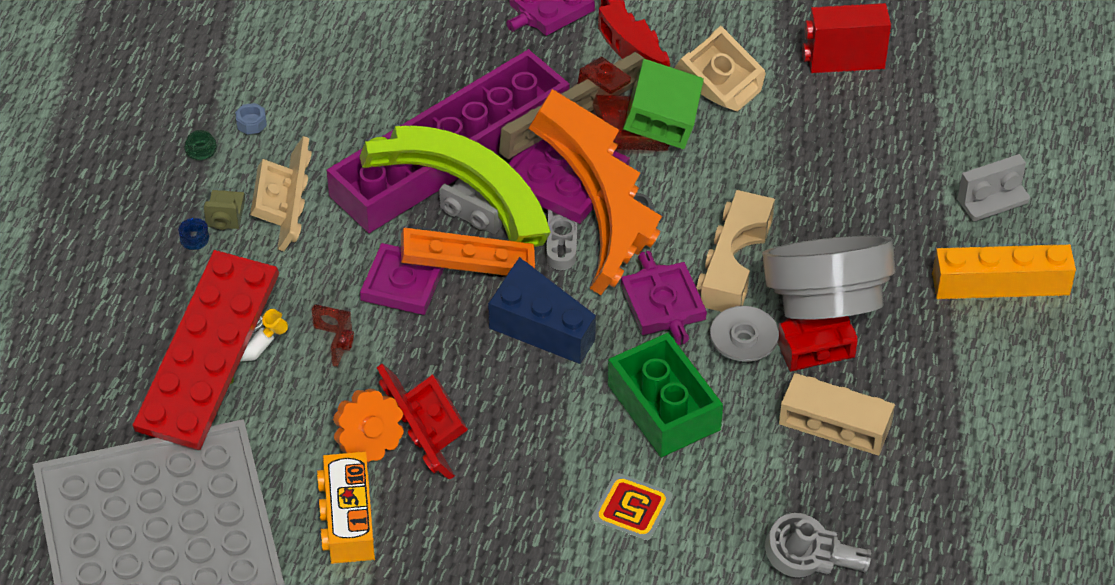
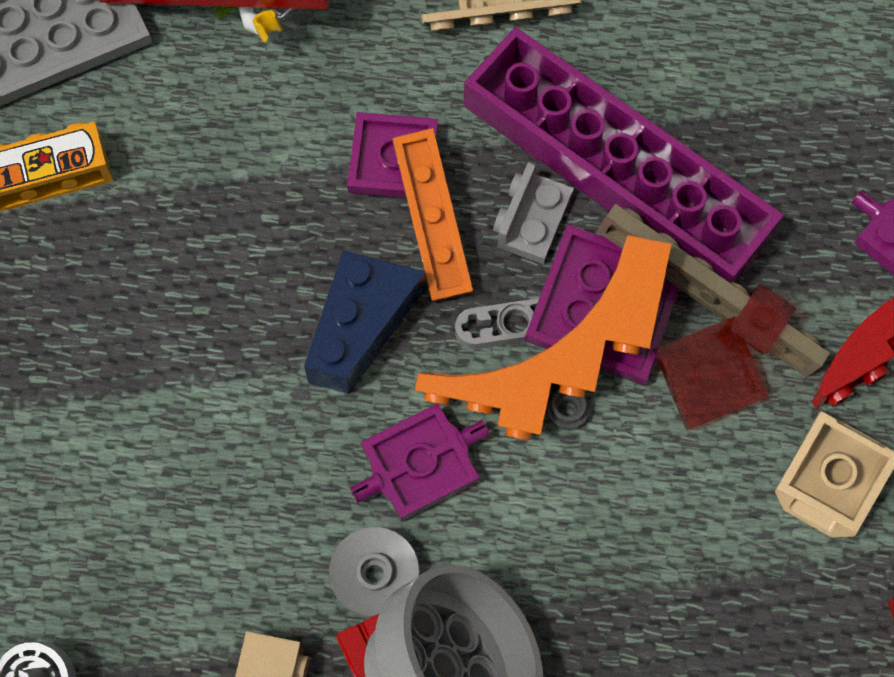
camera: 80 degrees right, 20 degrees up
(344, 335) = (288, 109): clear red bracket -> none
(368, 424) = (149, 158): orange plant -> none
(429, 414) = (183, 219): red bracket -> none
(472, 164) = (553, 191): lime arch -> none
(632, 506) = (100, 479): sticker -> none
(663, 104) = (743, 404): bright green brick -> none
(665, 394) = (247, 484): green brick -> none
(746, 223) = (568, 545): tan arch -> none

